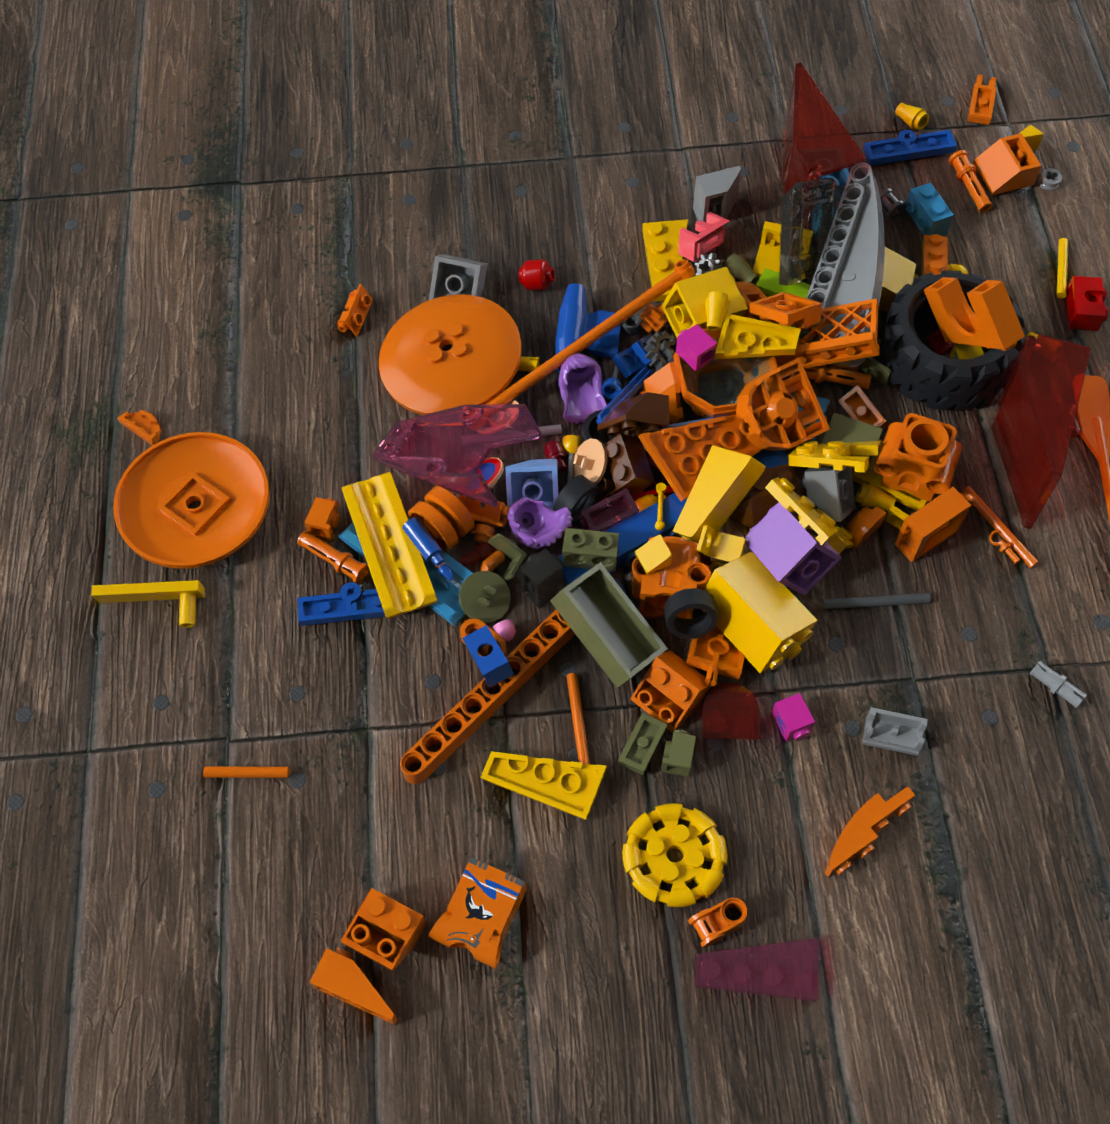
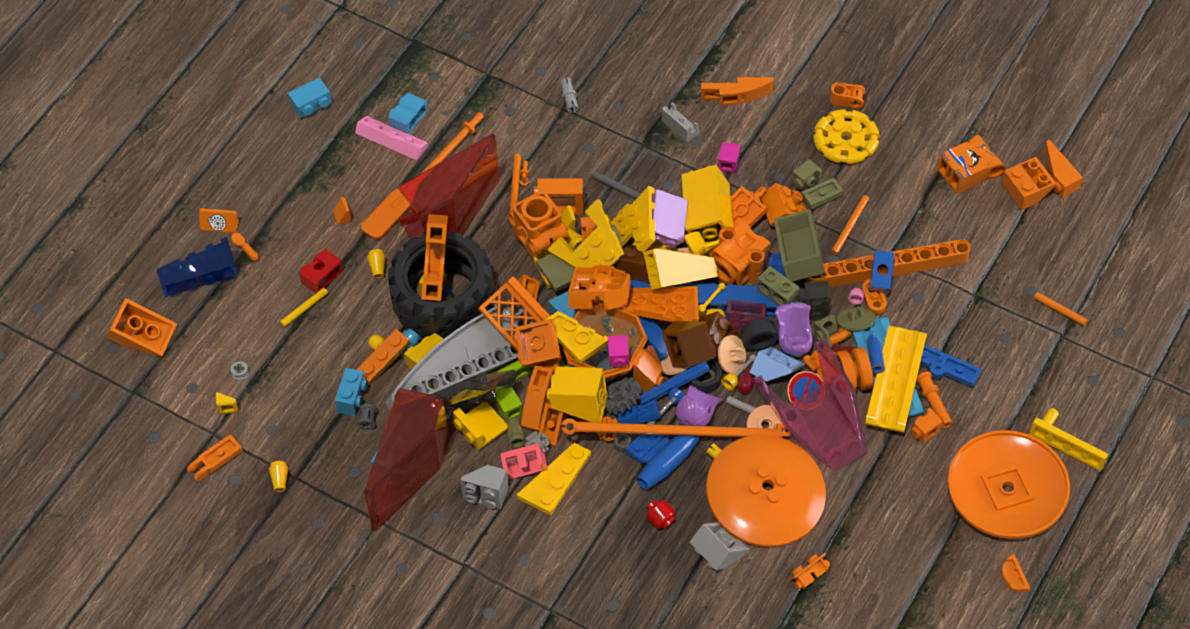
camera: 145 degrees left, 5 degrees down
(555, 783) = (887, 200): yellow wing -> none
(654, 555) = (747, 252): yellow slope -> none
(691, 599) = (750, 217): black tyre -> none
(716, 309) = (584, 364): yellow cone -> none
(730, 713) = (760, 175): clear red slope -> none
(766, 970) = (841, 68): clear pink wing -> none
(909, 147) = (307, 452): blue hinge -> none
(967, 173) = (292, 405): orange pin -> none
(1008, 165) = (262, 389): orange slope -> none

